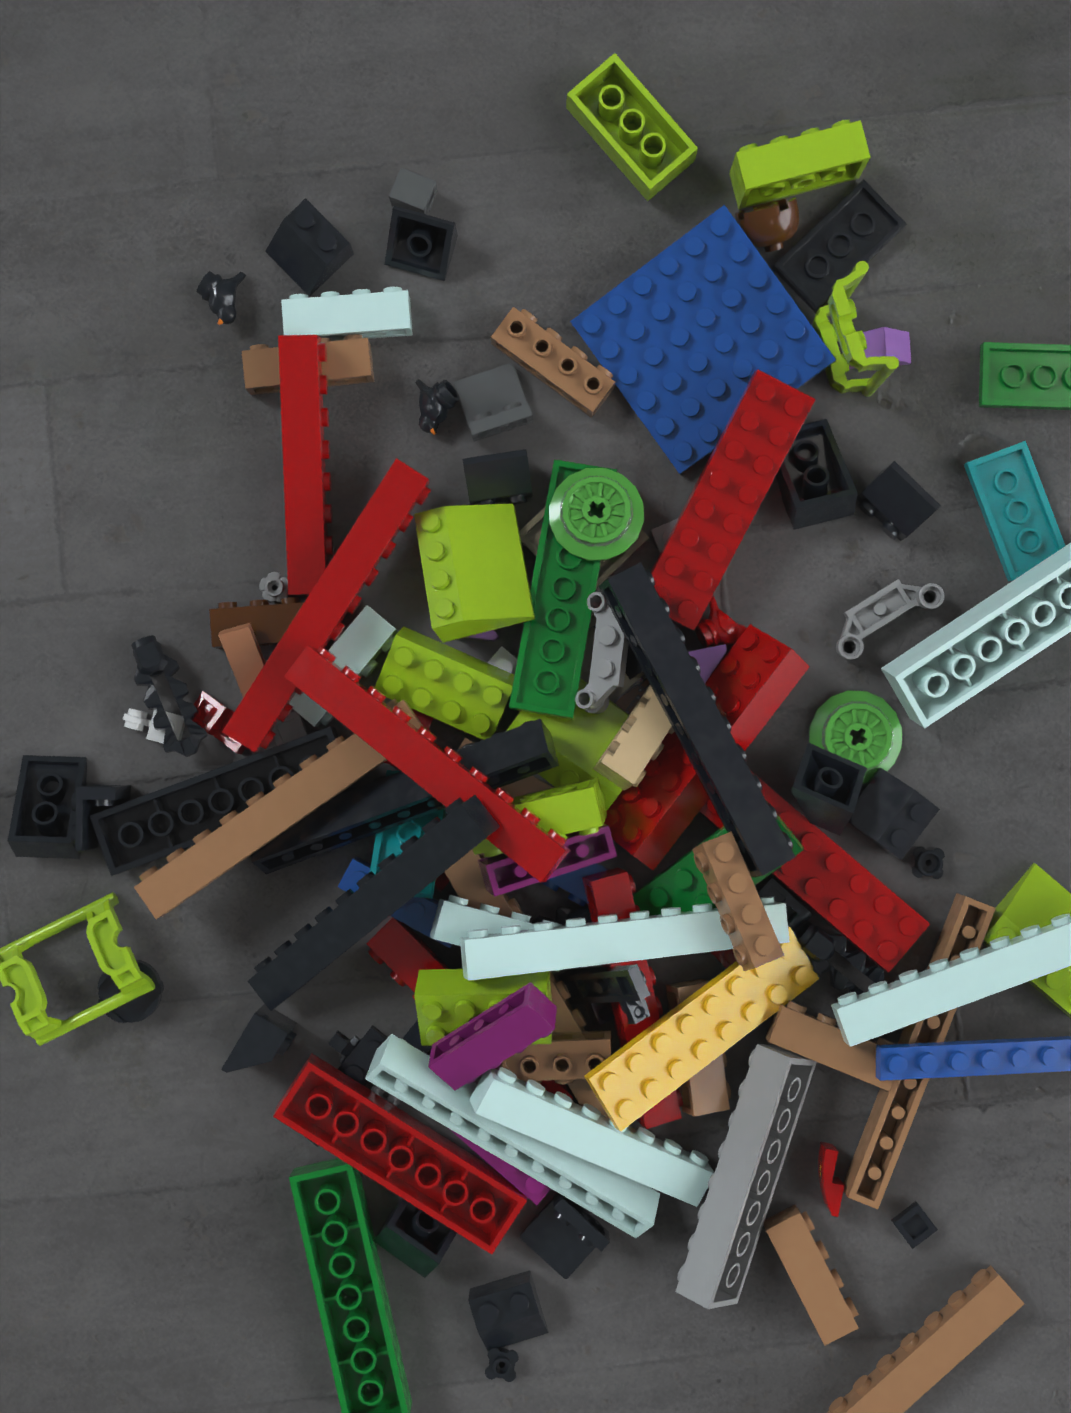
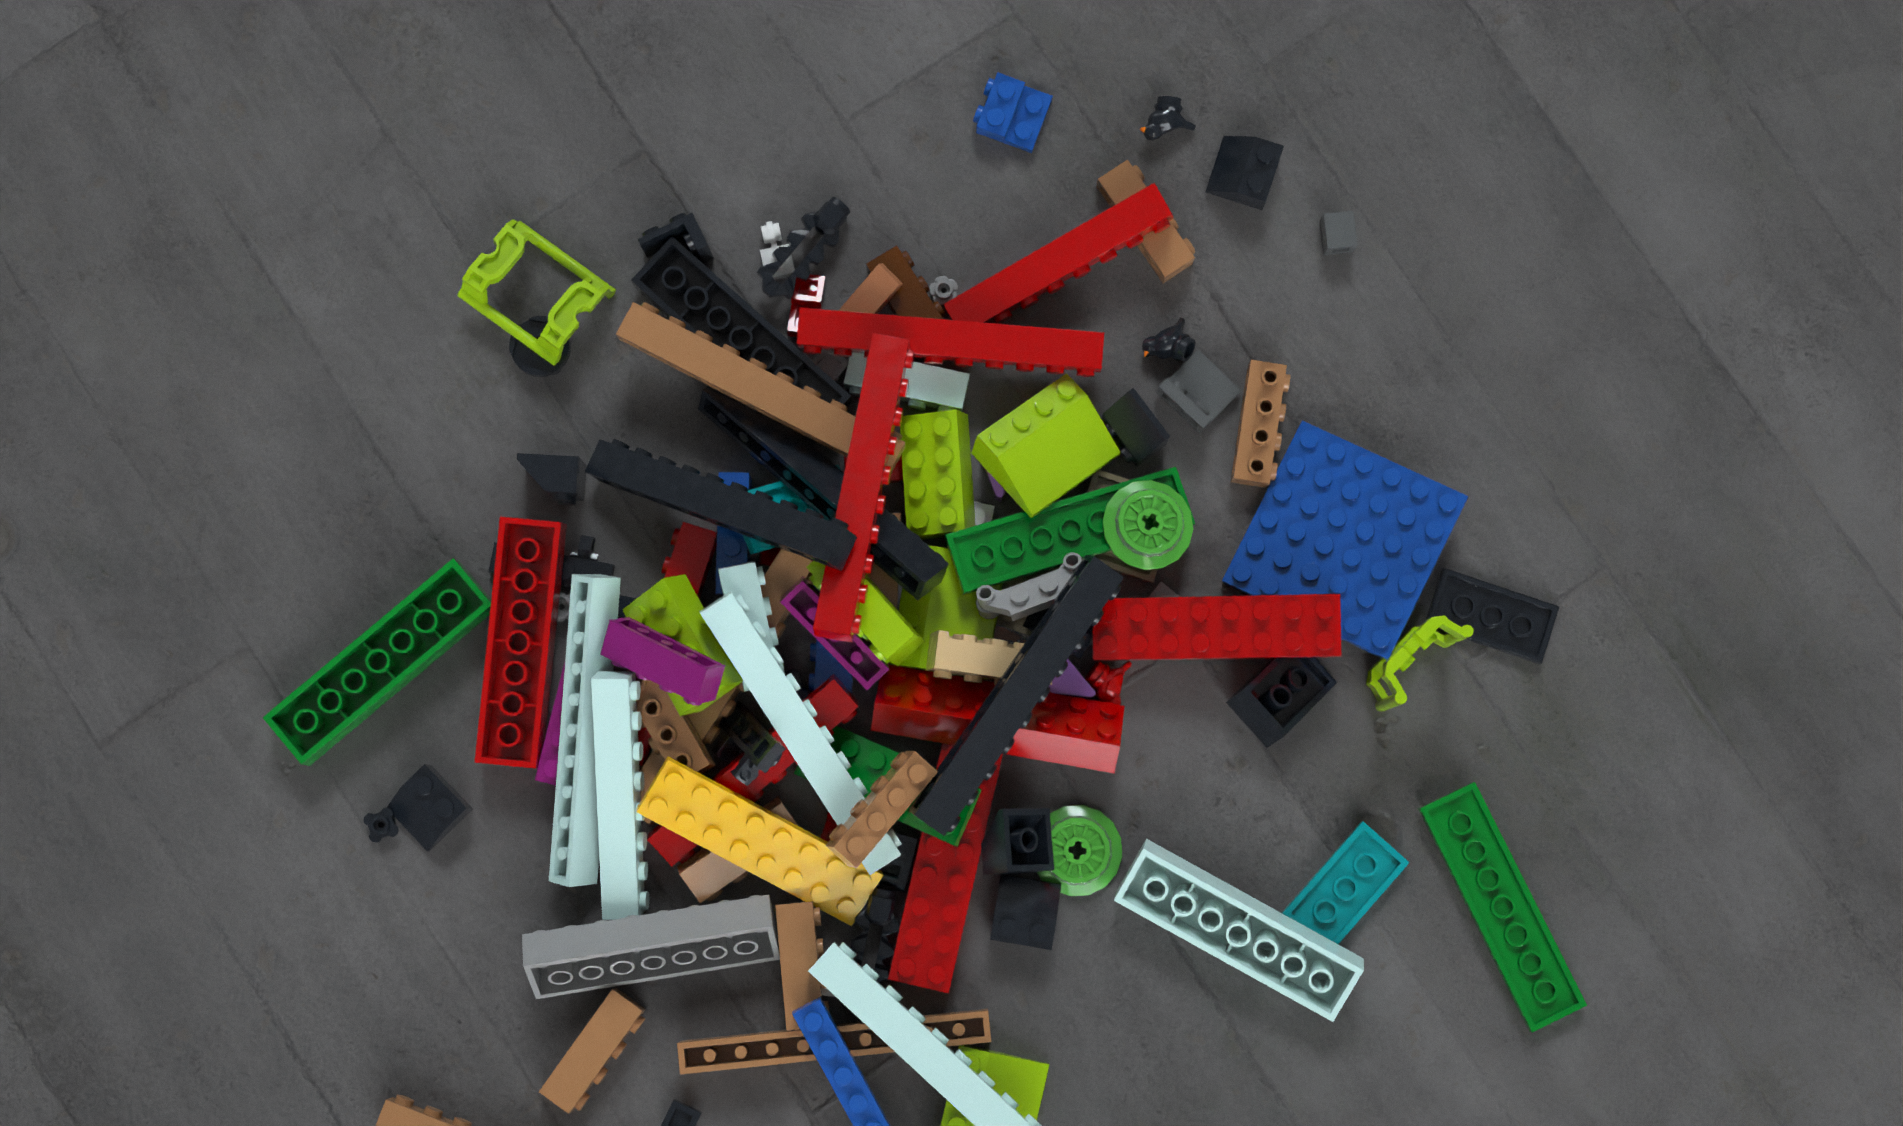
camera: 55 degrees right, 5 degrees down
(43, 806) = (659, 195): black slope -> none
(139, 435) = (1012, 112): none -> blue plate
(341, 315) = (1201, 225): light aqua brick -> none
(415, 1237) = (454, 693): black slope -> none
(420, 243) = (1299, 261): black slope -> none
(564, 1235) = (519, 820): black bracket -> none
(631, 127) = (1493, 385): lime brick -> none
(770, 223) = (1476, 544): reddish brown cylinder -> none
(799, 163) = (1539, 542): lime brick -> none
(831, 1186) = (677, 1029): red slope -> none
(880, 610) = (1196, 813): light grey plate -> none
(888, 342) = (1423, 696): medium lavender slope -> none
(897, 502) = (1295, 776): black slope -> none
(934, 869) = (992, 966): black plate -> none

